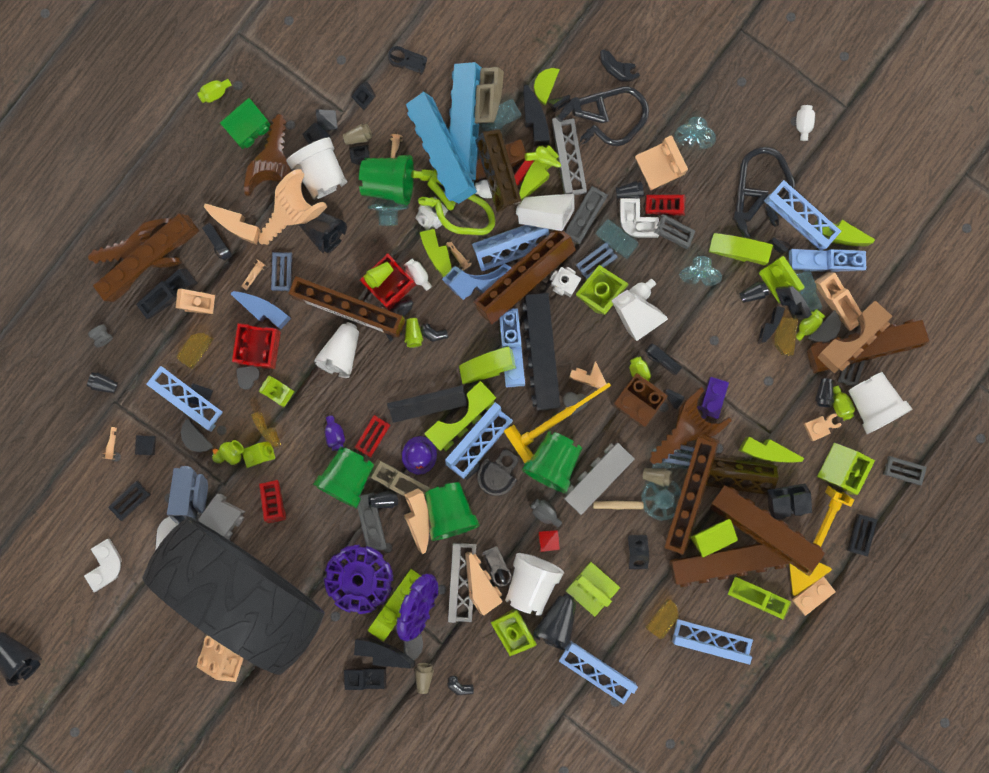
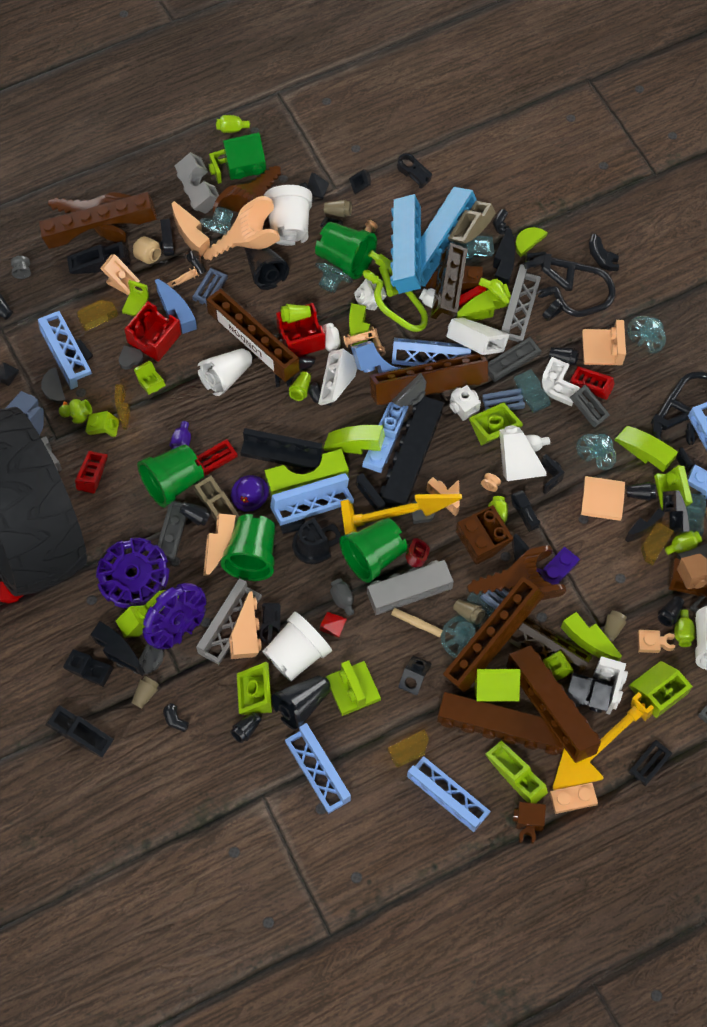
camera: 25 degrees right, 20 degrees down
(203, 163) = (190, 172): none -> light grey arch
(205, 263) = (146, 250): none -> tan head
(217, 137) = (214, 162): none -> lime bracket
(223, 320) = (136, 298): none -> lime bracket
(253, 251) = (194, 257): none -> black arm
(257, 202) = (221, 219): none -> clear light blue wheel
(387, 737) = (79, 731): none -> black slope
(443, 312) = (338, 375): none -> white slope
(444, 265) = (358, 338): none -> light nougat piece
(513, 82) = (498, 222): none -> black arm
(517, 300) = (412, 392): none -> dark grey tile
(522, 667) = (244, 728): none -> black cone
(524, 408) = (370, 493): none -> black tile
(591, 445) = (417, 553): none -> dark red plate
(601, 149) = (553, 310): none -> black tile
(622, 346) = (491, 482): none -> light nougat bush
(671, 307) = (555, 470): none -> black bracket
(723, 315) = (603, 498): none -> light nougat slope
(752, 489) = (558, 665): none -> lime slope
(783, 430) = (614, 624): none -> dark tan cone
(787, 632) = (529, 818): none -> reddish brown brick
(812, 481) = (613, 672): none -> white bracket

